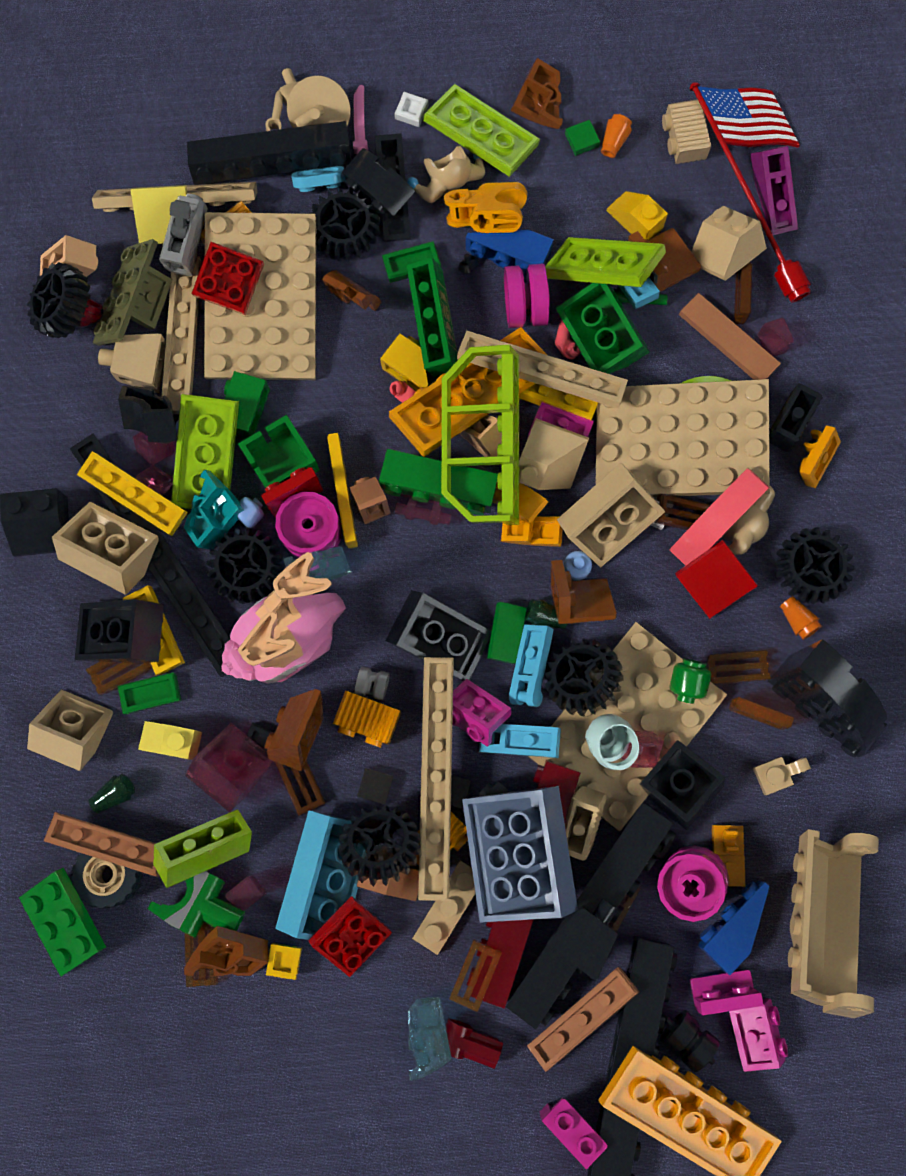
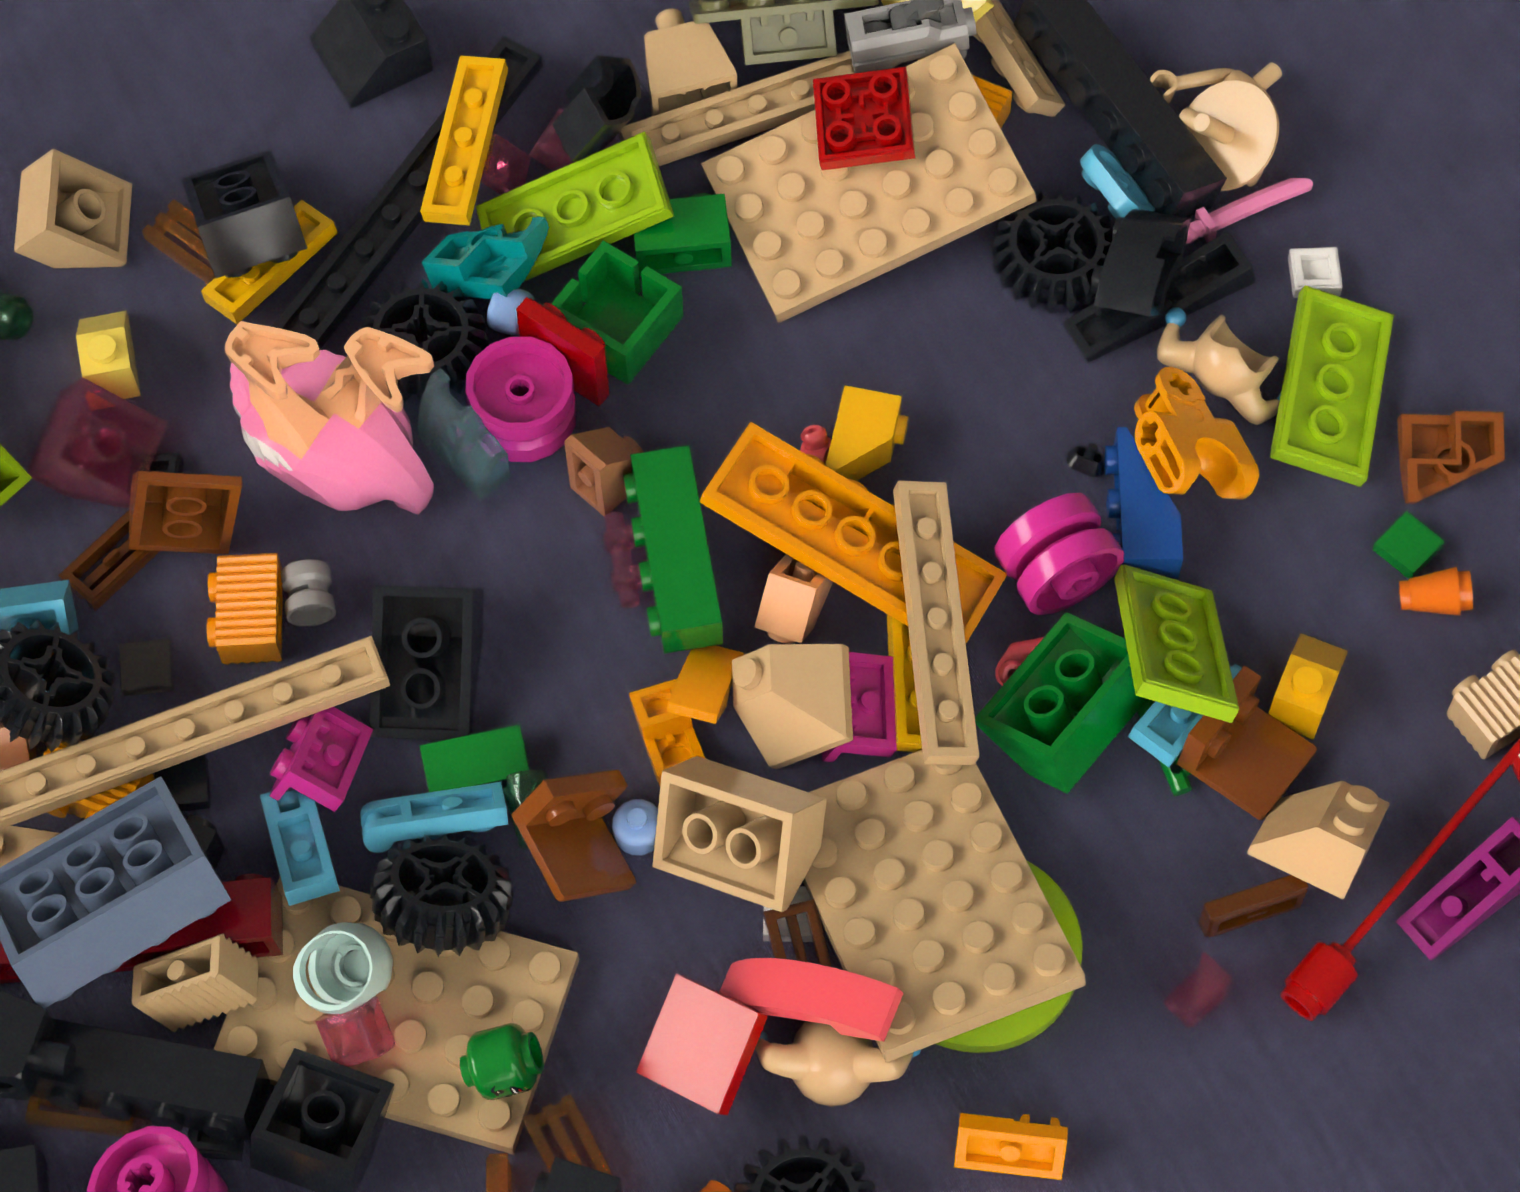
camera: 65 degrees right, 15 degrees down
(105, 547) = (368, 142): tan slope -> none
(149, 693) = (171, 299): green tile -> none
(342, 490) = (622, 415): yellow tile -> none
(348, 290) = (945, 304): dark orange slope -> none
(396, 262) = (1046, 377): green tile -> none
(432, 316) = (959, 431): green brick -> none
(507, 424) = (788, 607): lime plate -> none
(729, 338) = (1161, 921): nougat tile -> none
(794, 417) = (1056, 1068): black brick -> none

